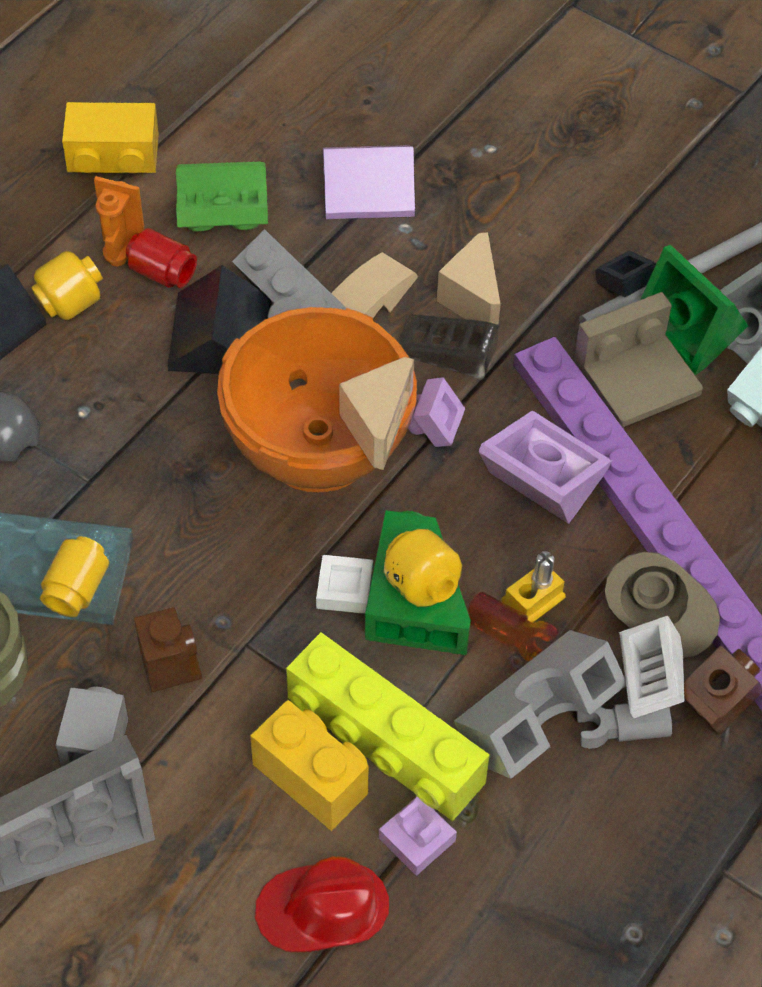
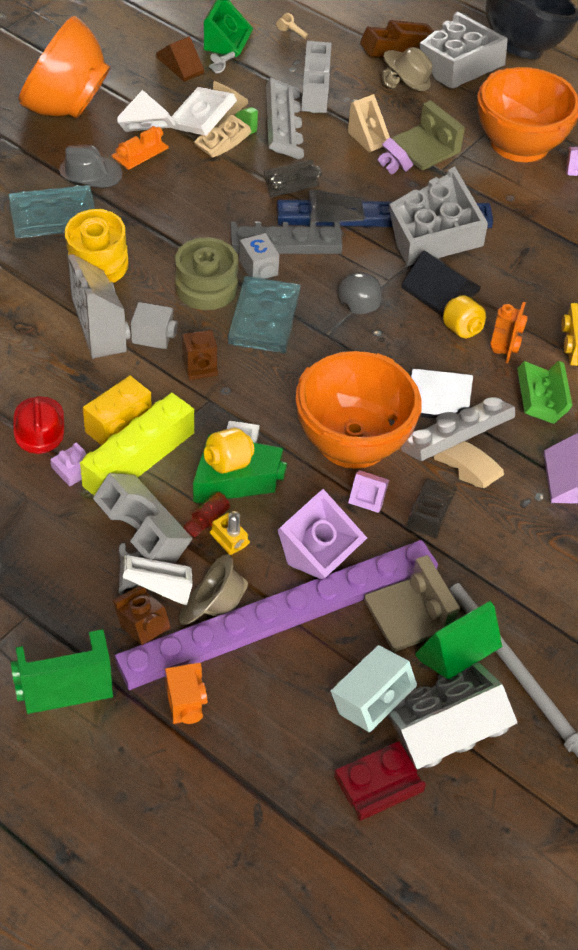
camera: 90 degrees right, 5 degrees down
(74, 576) = (243, 308): yellow brick -> none
(161, 258) = (490, 360): red brick -> none
(375, 406) = (323, 410): tan slope -> none
(469, 282) = (482, 520): tan slope -> none
(625, 273) = (506, 615): black tile -> none

